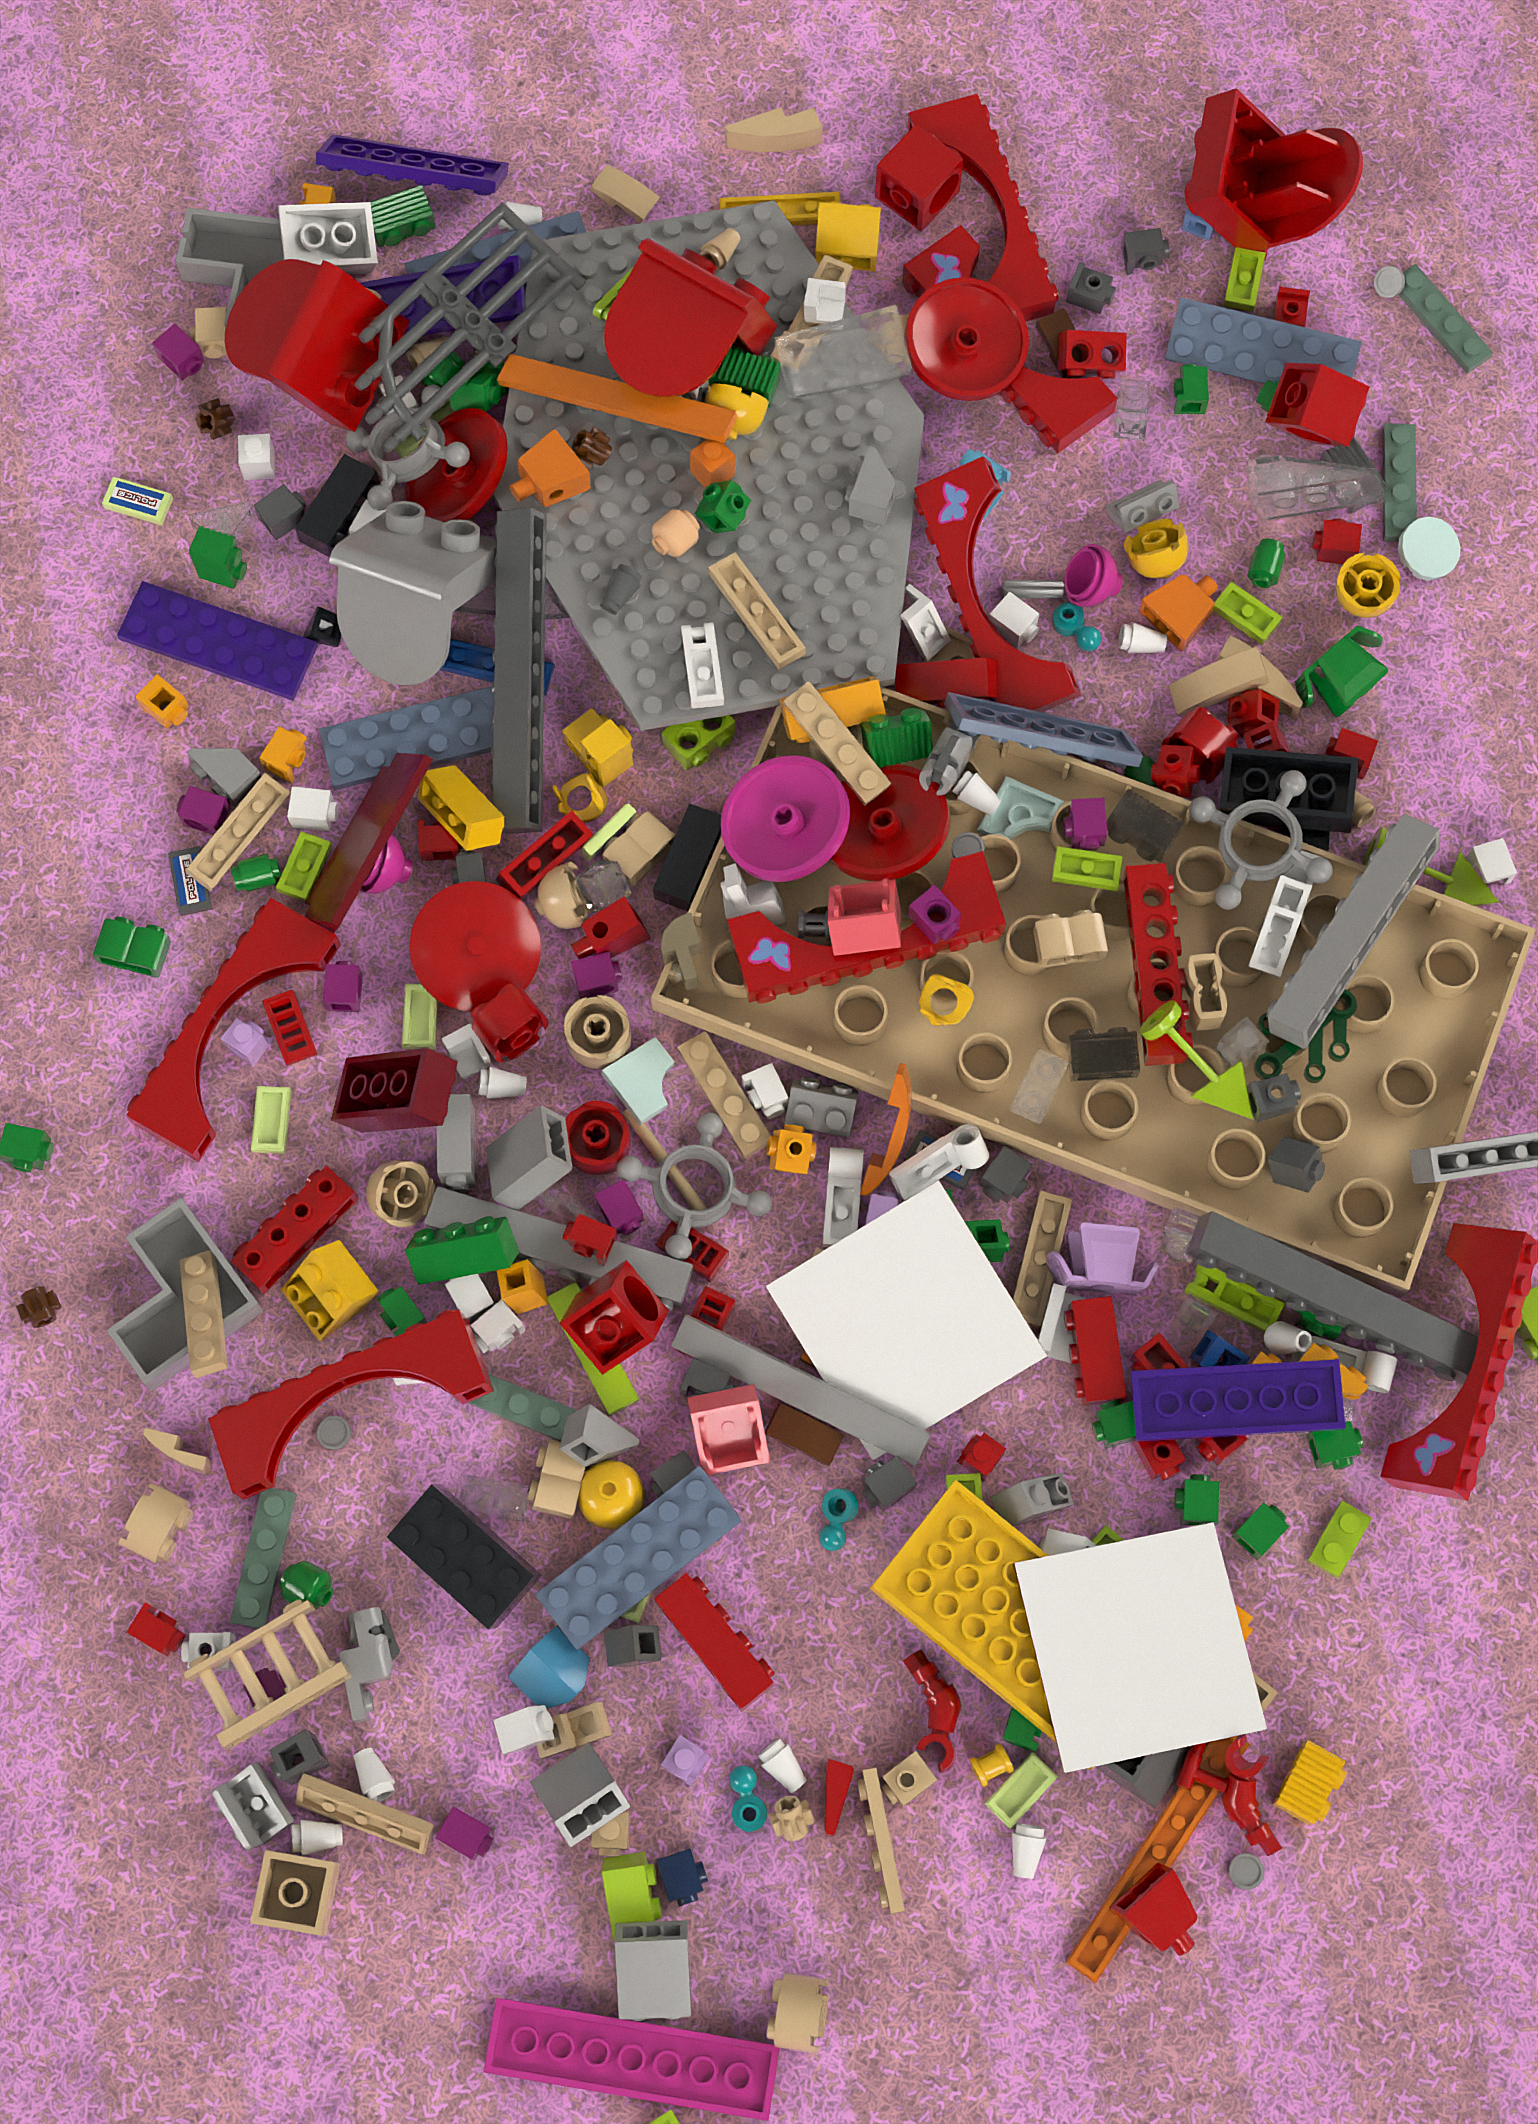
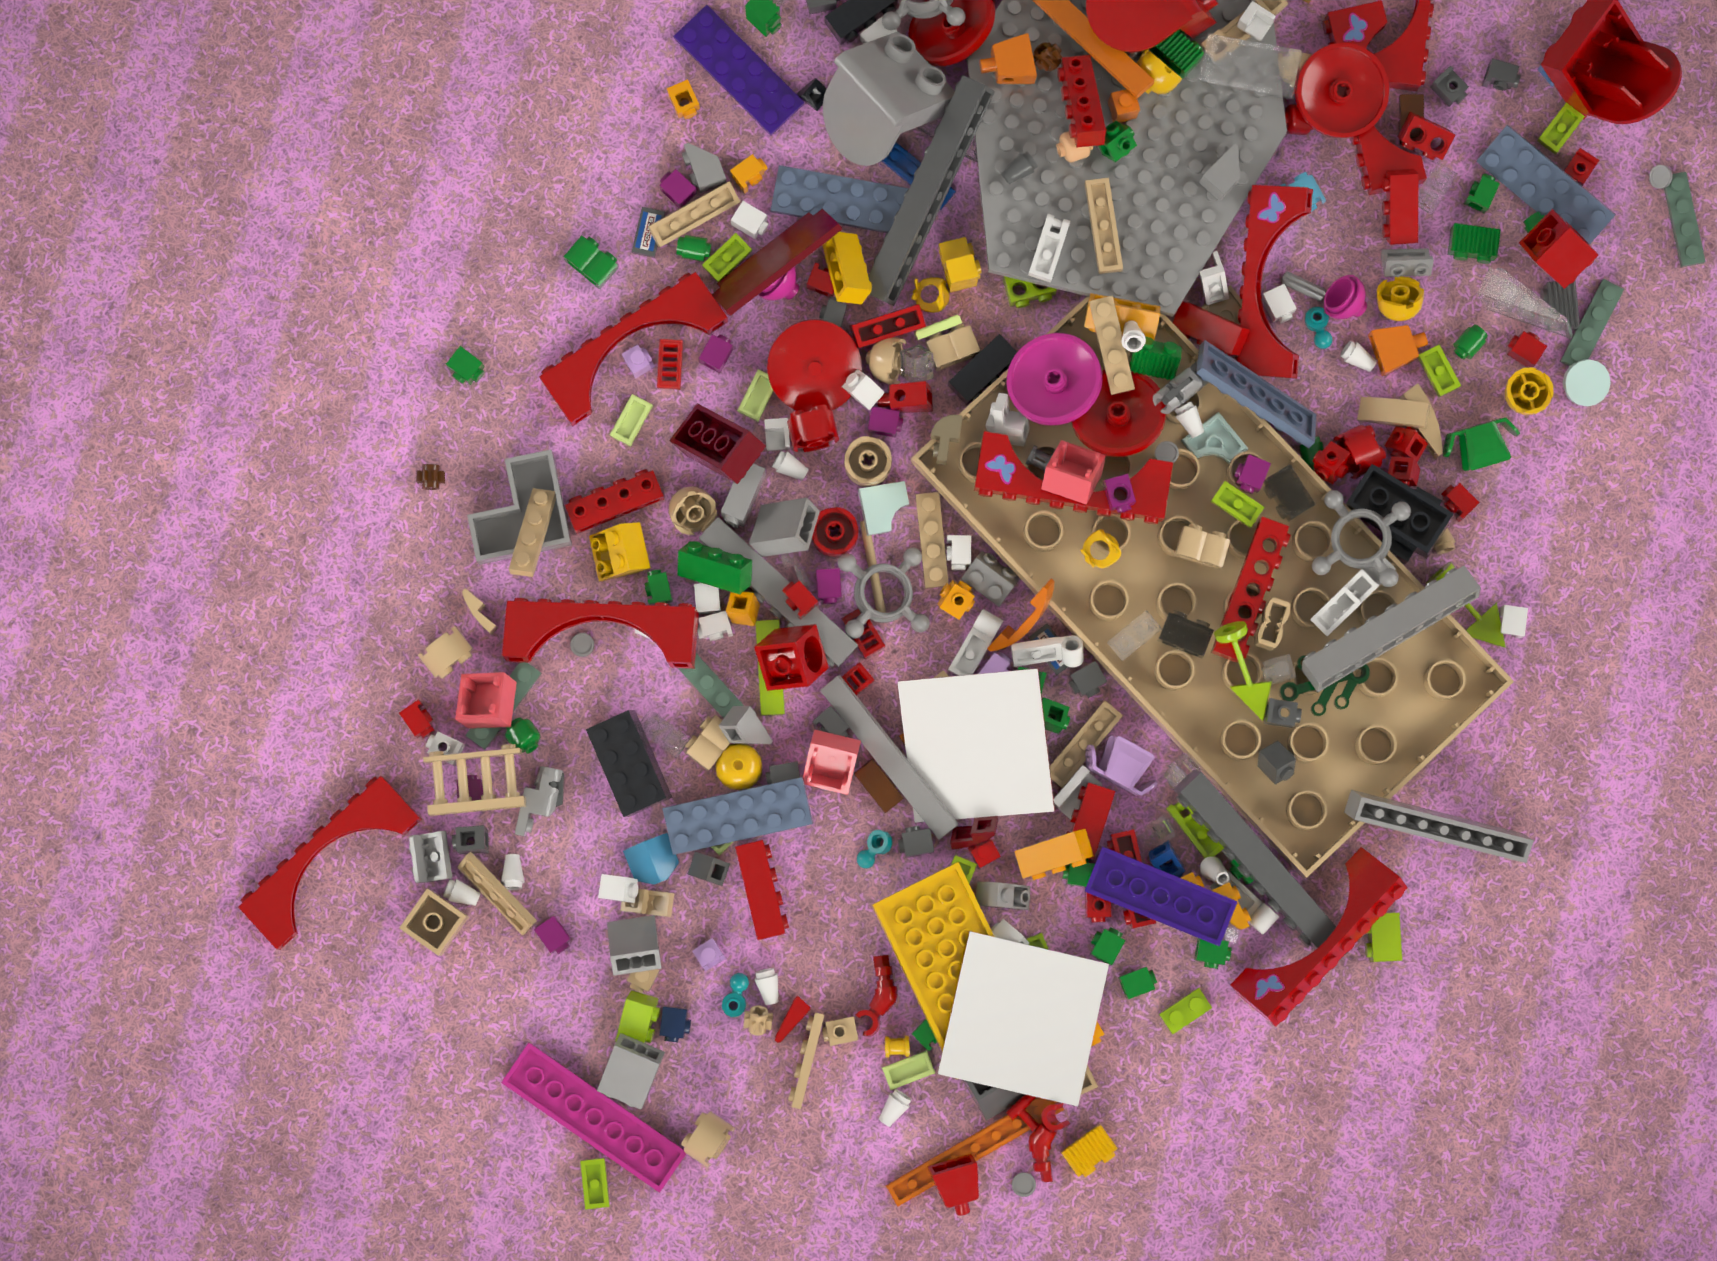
camera: 20 degrees right, 10 degrees up
(63, 1972) = (273, 903): none -> red arch
(236, 1560) = (486, 700): none -> coral container
(549, 945) = (863, 389): none -> white brick
(659, 476) = (1082, 100): none -> red brick
(859, 720) = (1133, 337): none -> white cone
(931, 403) = (1295, 122): none -> red head
(965, 1427) = (981, 831): none -> dark red slope
(1073, 1413) = (1054, 854): none -> light orange brick
(1104, 442) = (1401, 206): none -> red brick
(1210, 449) = (1473, 242): none -> green brick

